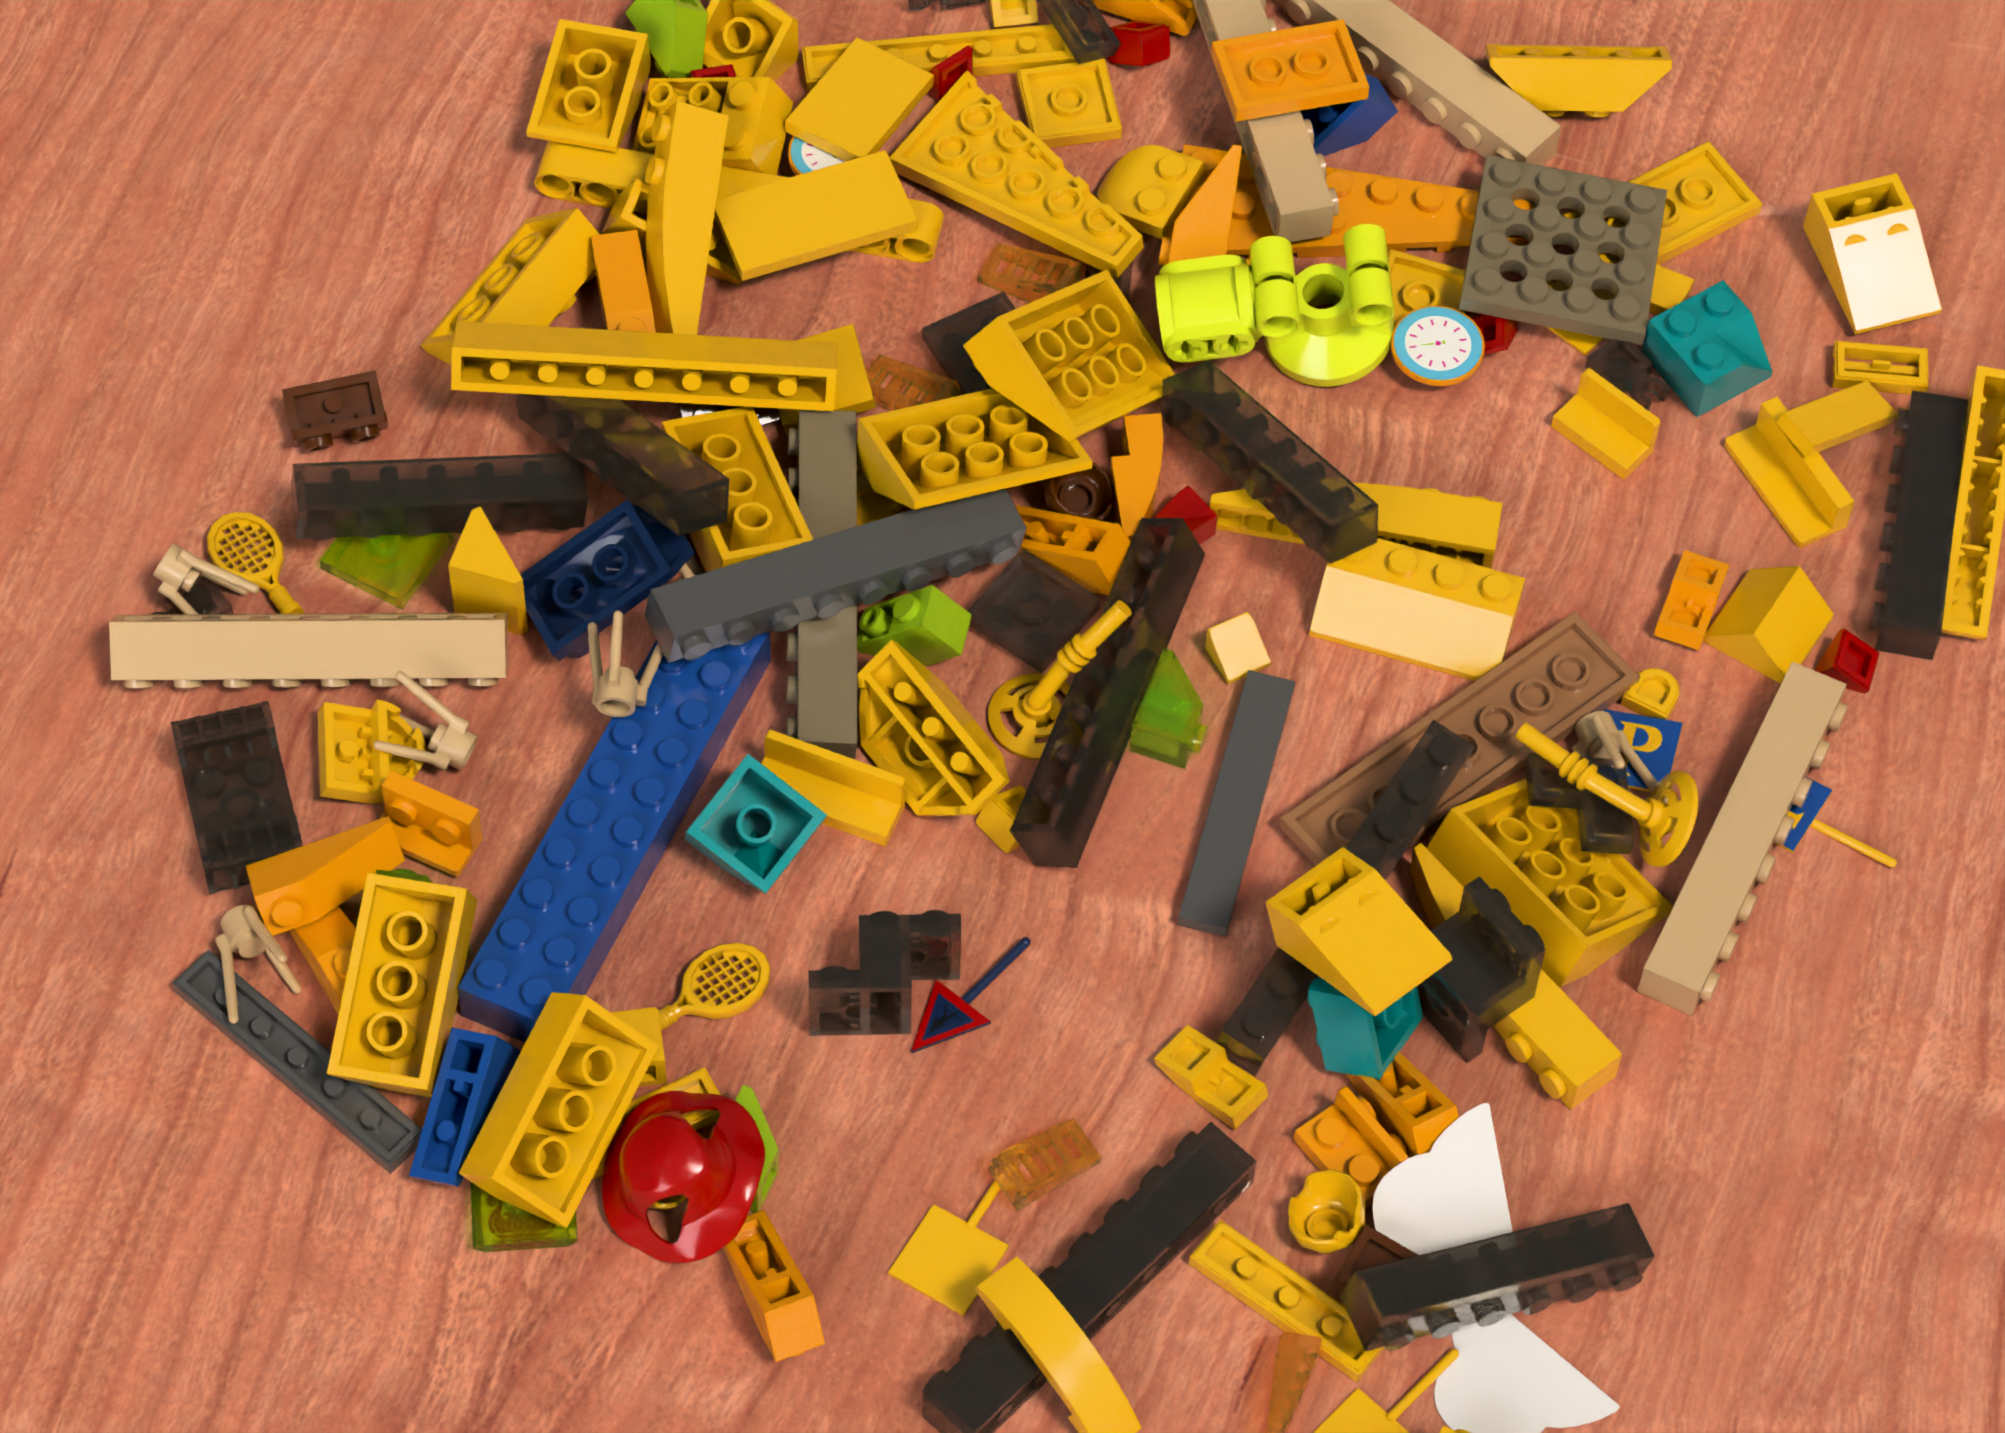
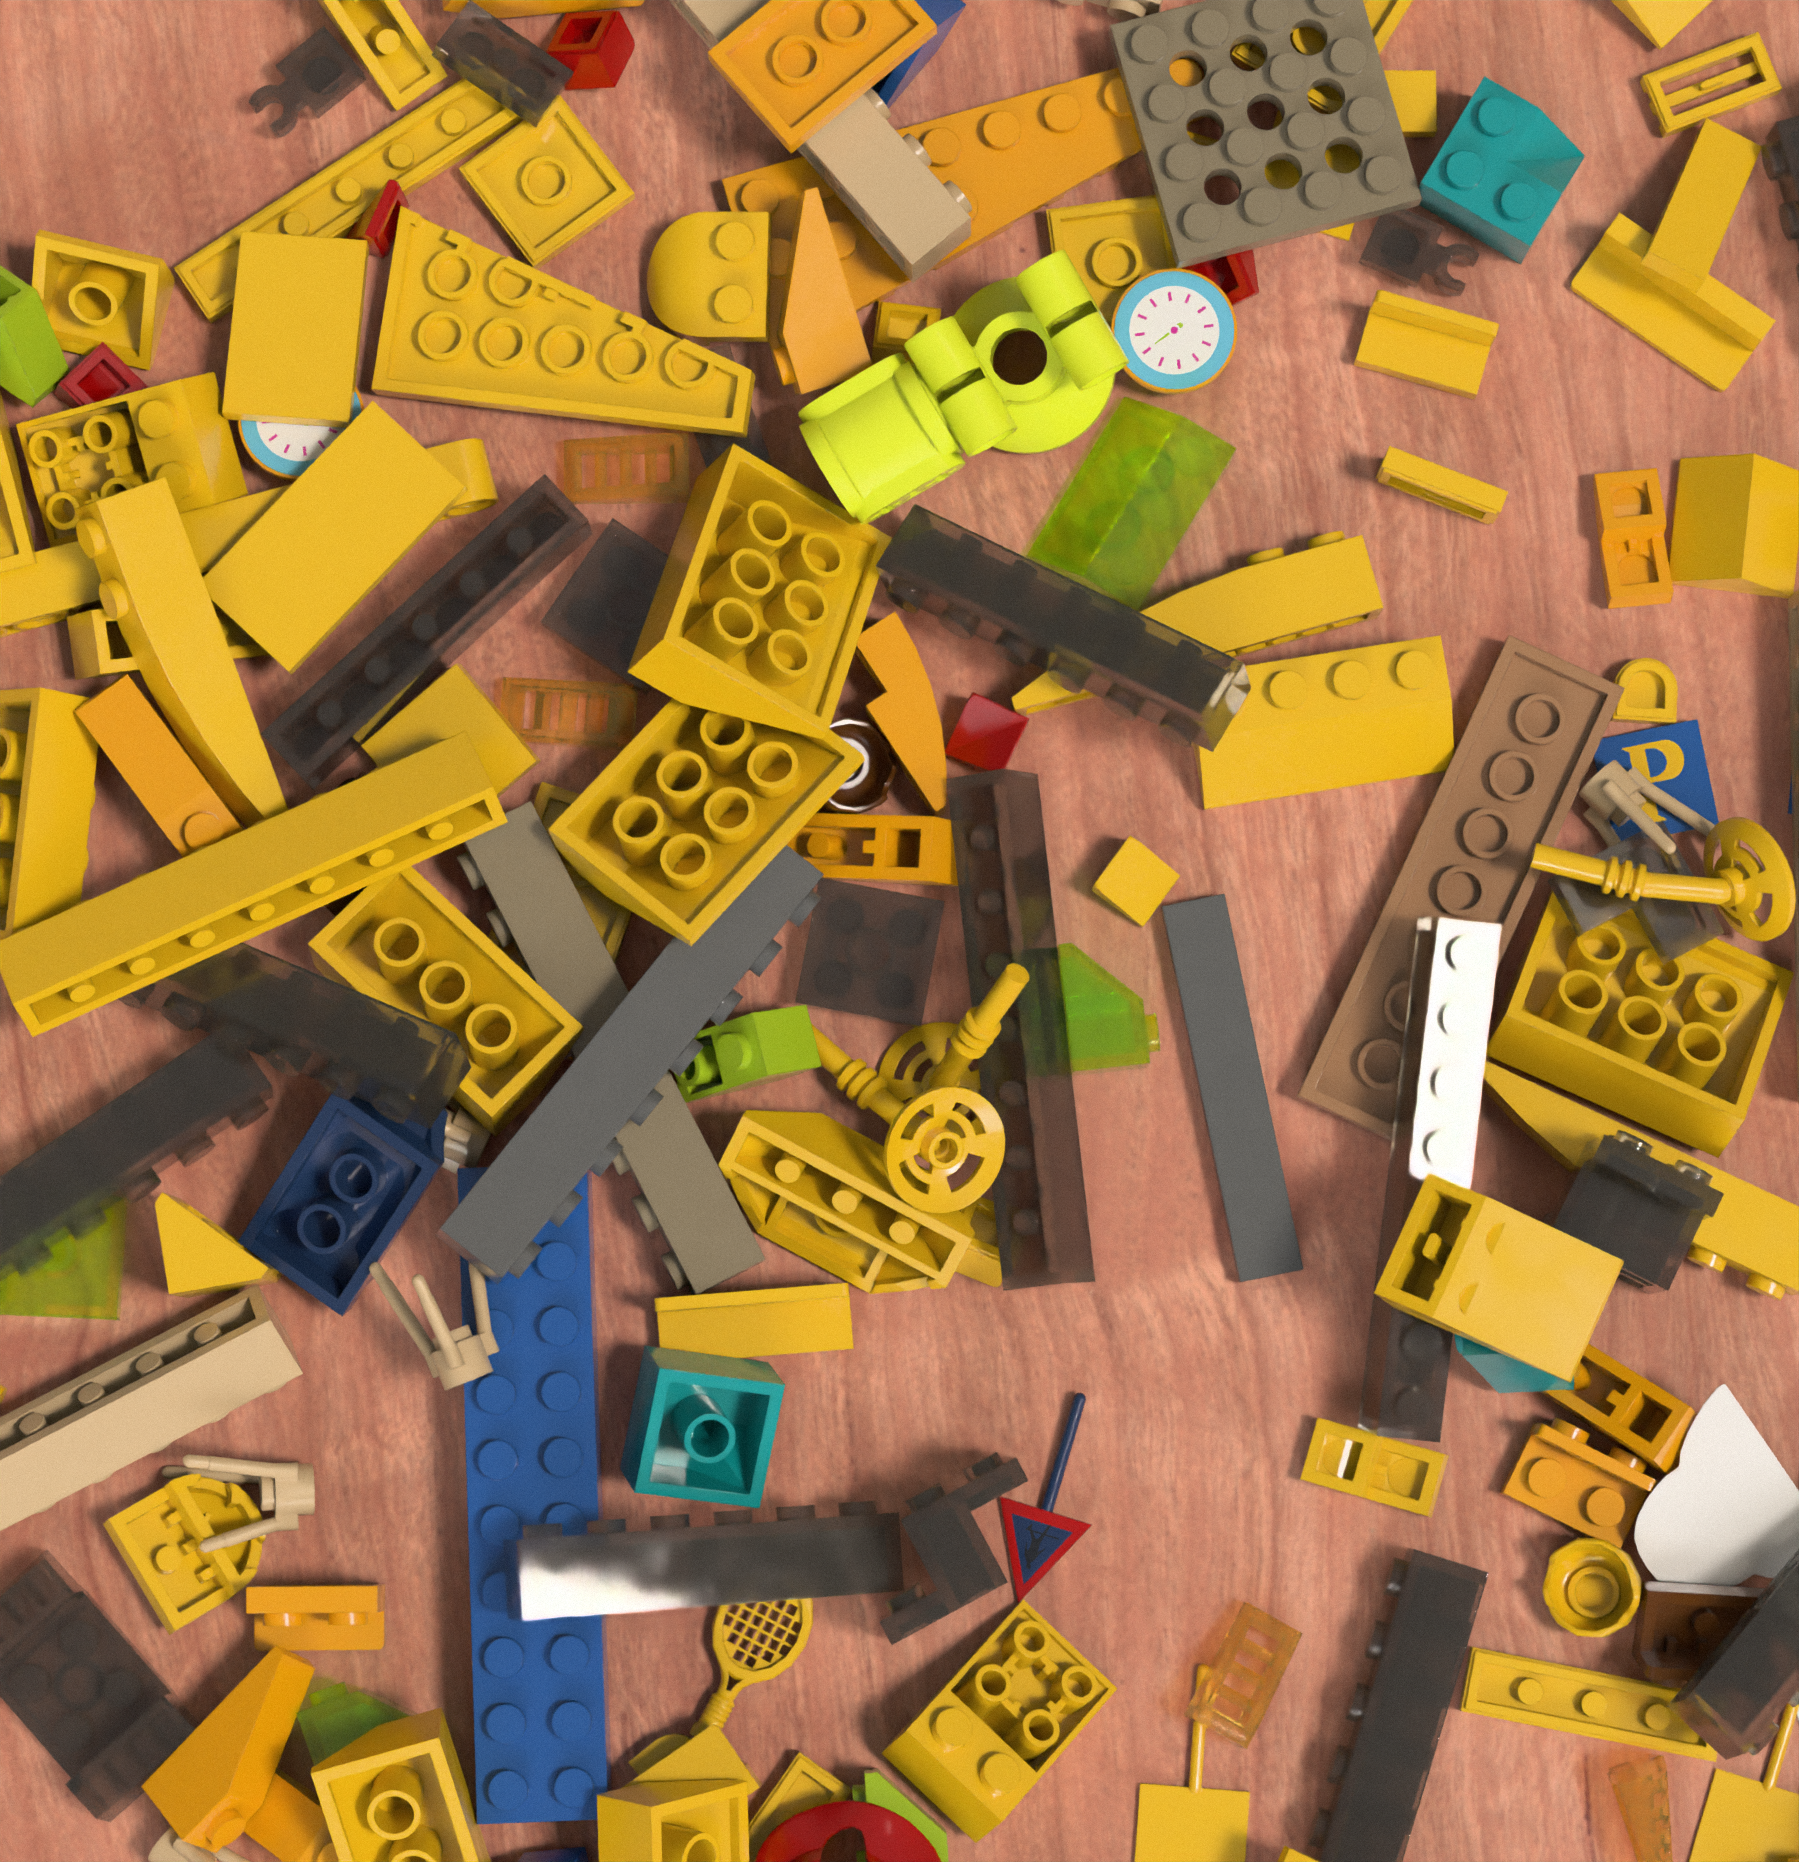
camera: 25 degrees left, 25 degrees up
(704, 893) = (702, 1564): none -> clear smoke brick
(853, 1110) = (999, 1722): none -> yellow slope
(856, 292) = (428, 632): none -> clear smoke brick
(1011, 709) = (924, 1136): none -> yellow dish
(1373, 428) = (1133, 502): none -> clear neon green slope
(1573, 508) = (1441, 485): none -> yellow tile

